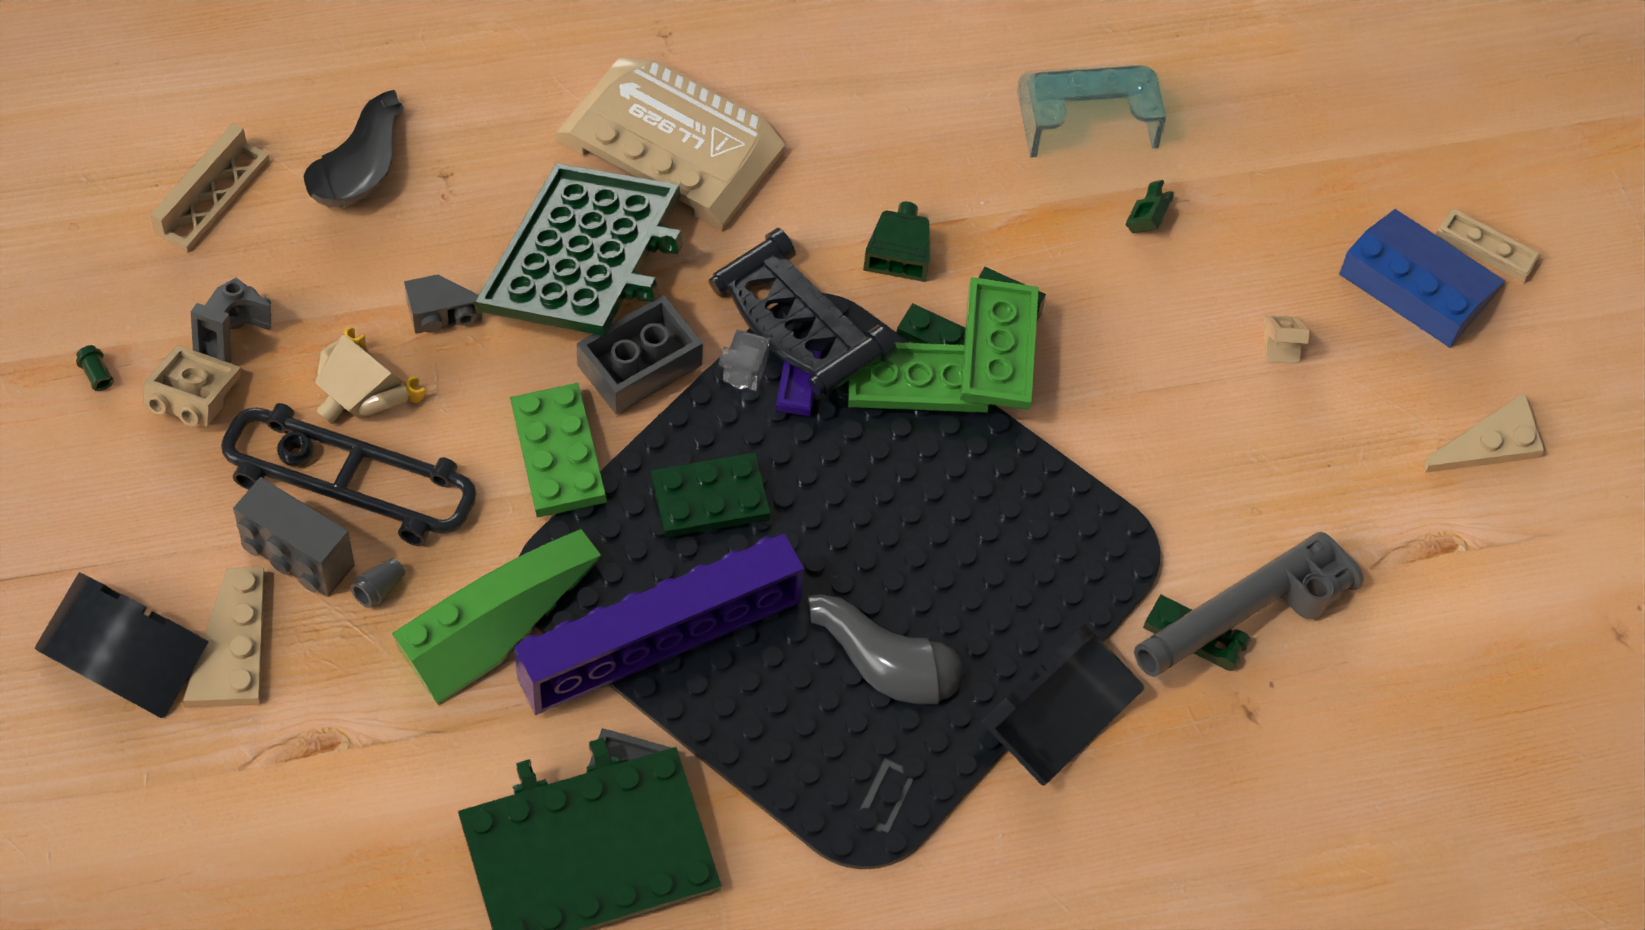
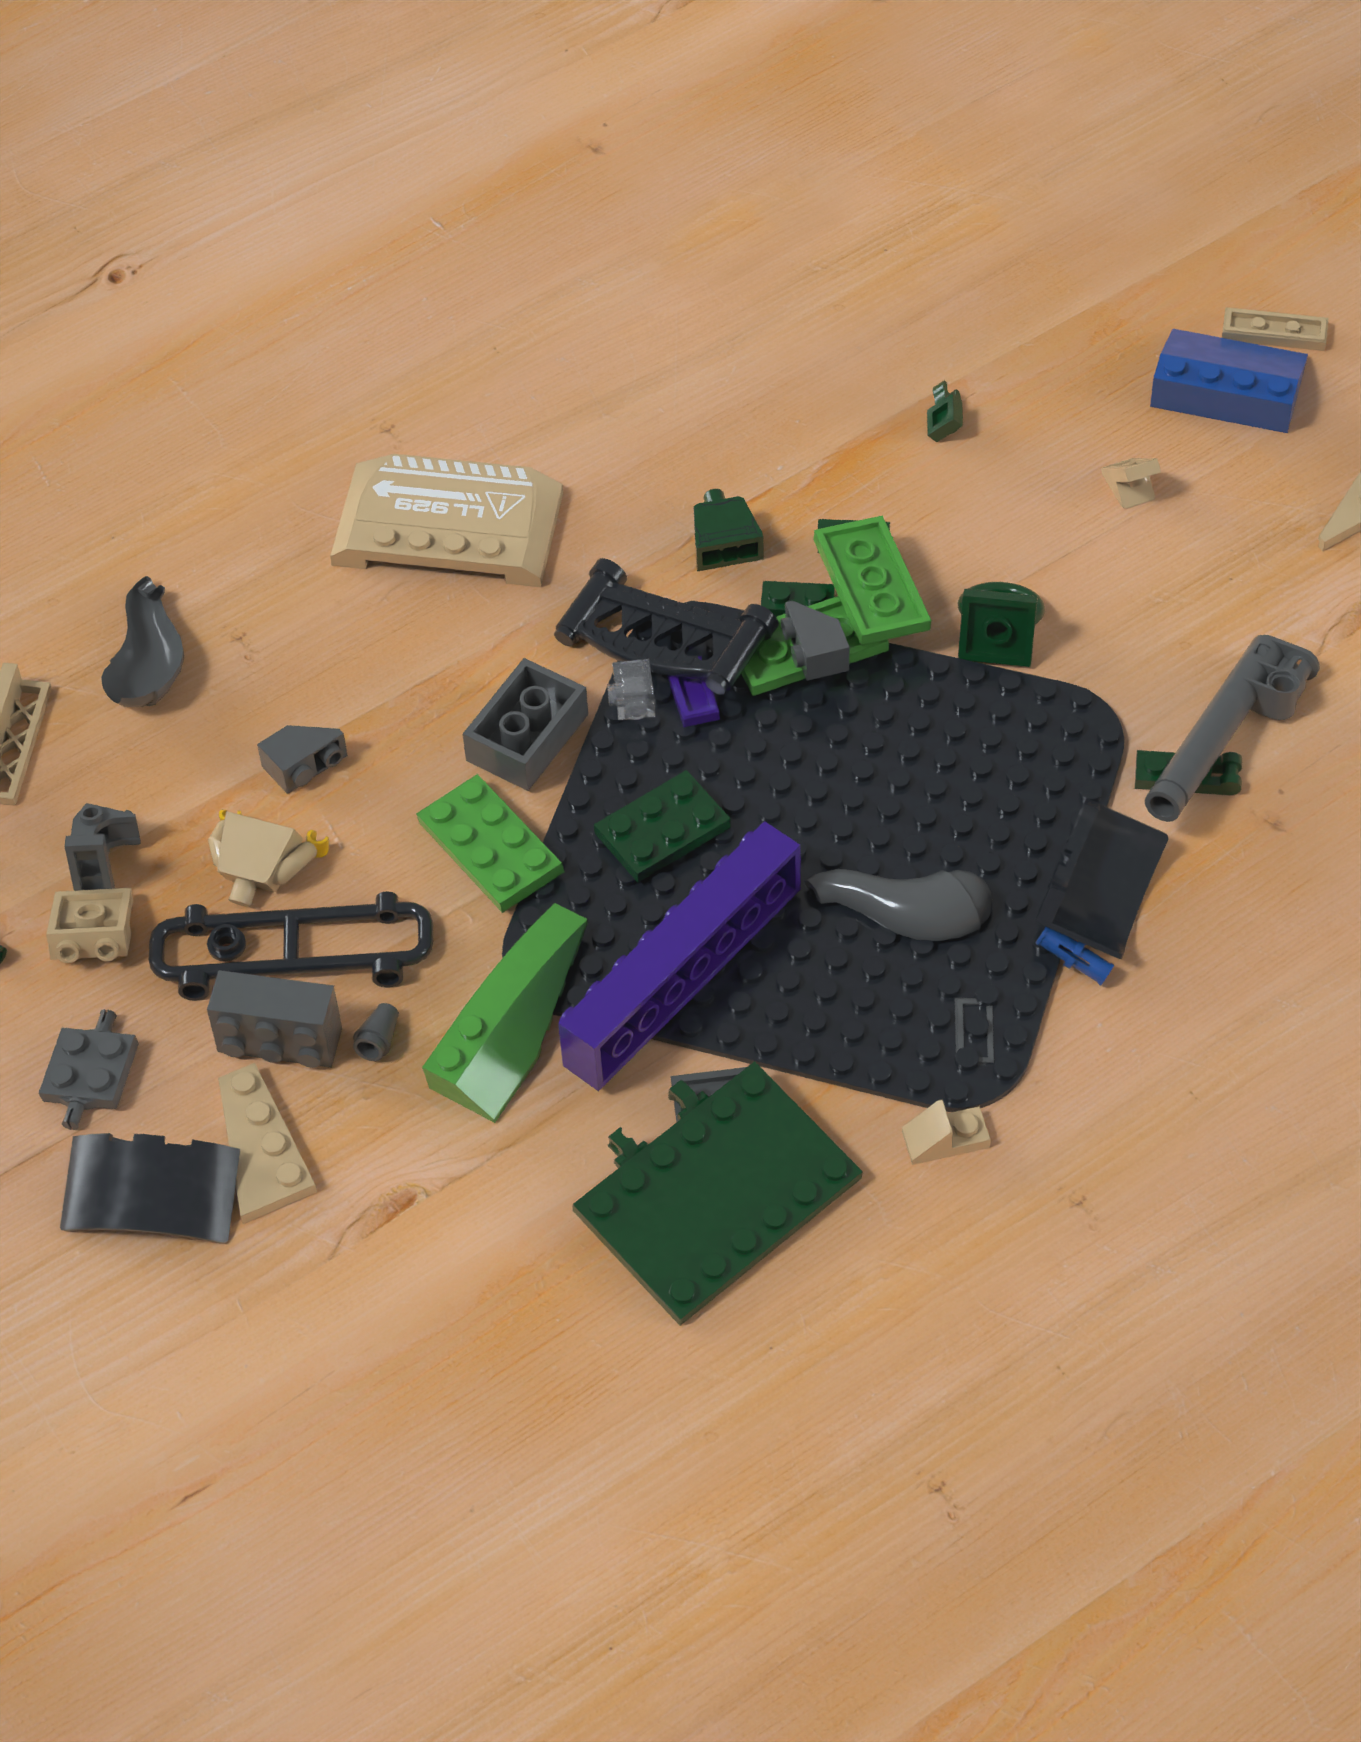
camera: 15 degrees left, 5 degrees down
(127, 514) = (88, 1068): none -> dark grey plate
(583, 250) = (421, 648): hinge -> none
(806, 880) = (942, 1134): none -> tan slope
(922, 382) = (816, 641): none -> dark grey slope
(1007, 765) = (1096, 970): none -> blue pin
(1045, 91) = (795, 346): clear light blue windscreen -> none
(1095, 430) = (999, 623): none -> dark green tile

